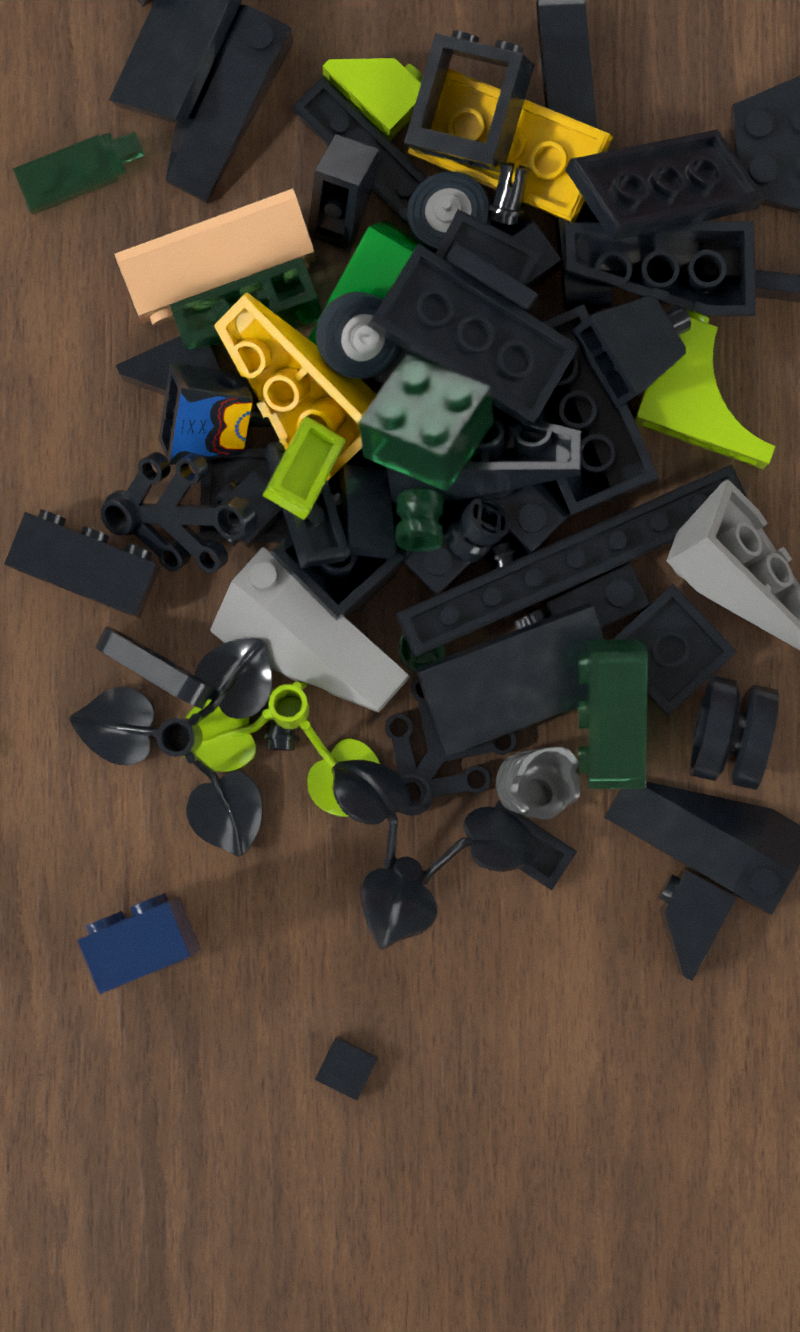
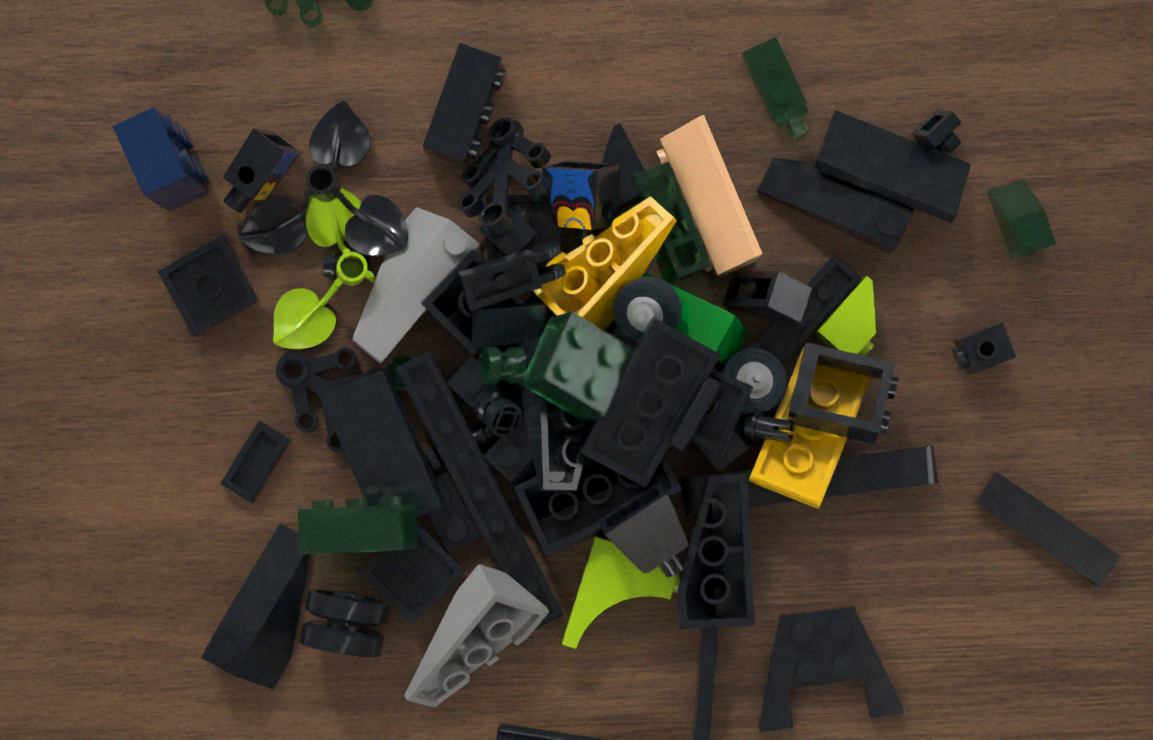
camera: 90 degrees right, 0 degrees up
(139, 813) = (265, 156): none -> black torso
(154, 667) = (382, 163): beam -> none
(300, 897) = (208, 286): none -> black plate
(304, 467) = (538, 272): lime tile -> none
(346, 1068) = (77, 328): black tile -> none
(395, 897) = (199, 354): black plant -> none
(539, 782) = (303, 469): dark grey hair -> none
(664, 184) = (781, 551): black tile -> none
(692, 918) = (200, 596): black slope -> none

